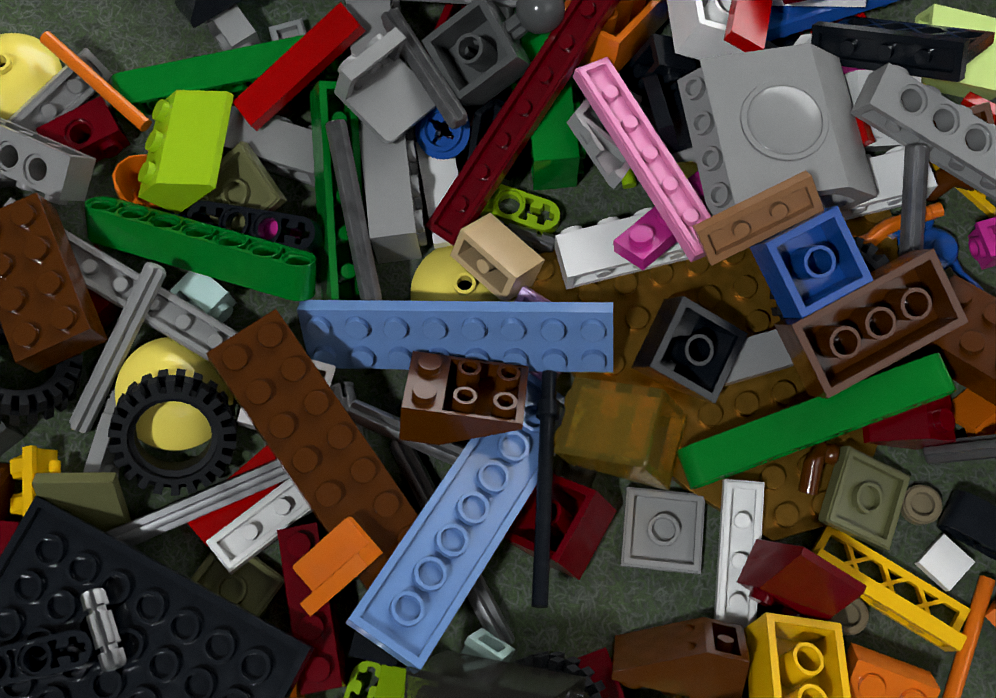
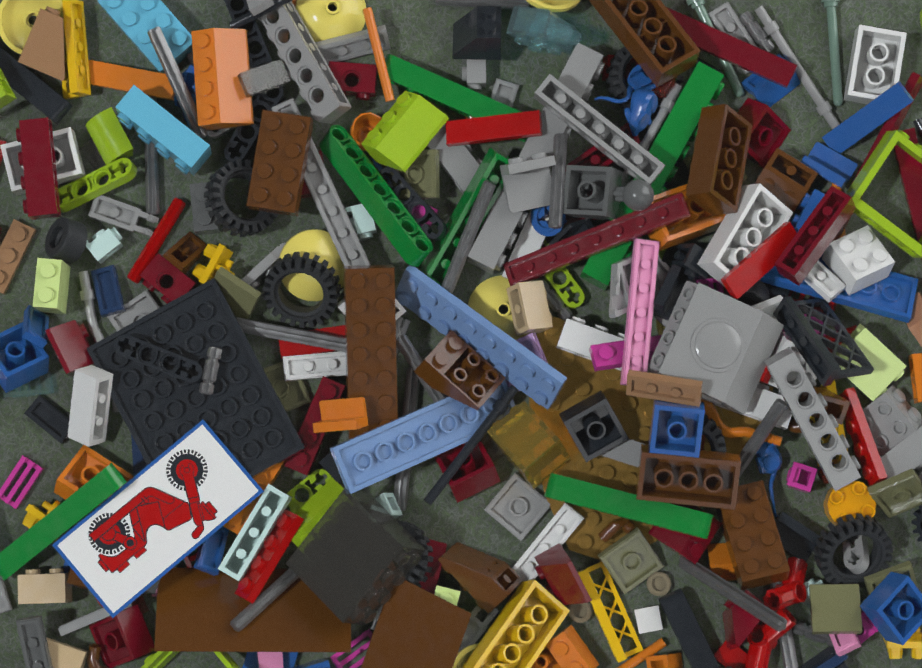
camera: 30 degrees right, 10 degrees up
(117, 347) = (300, 223): light grey axle -> none

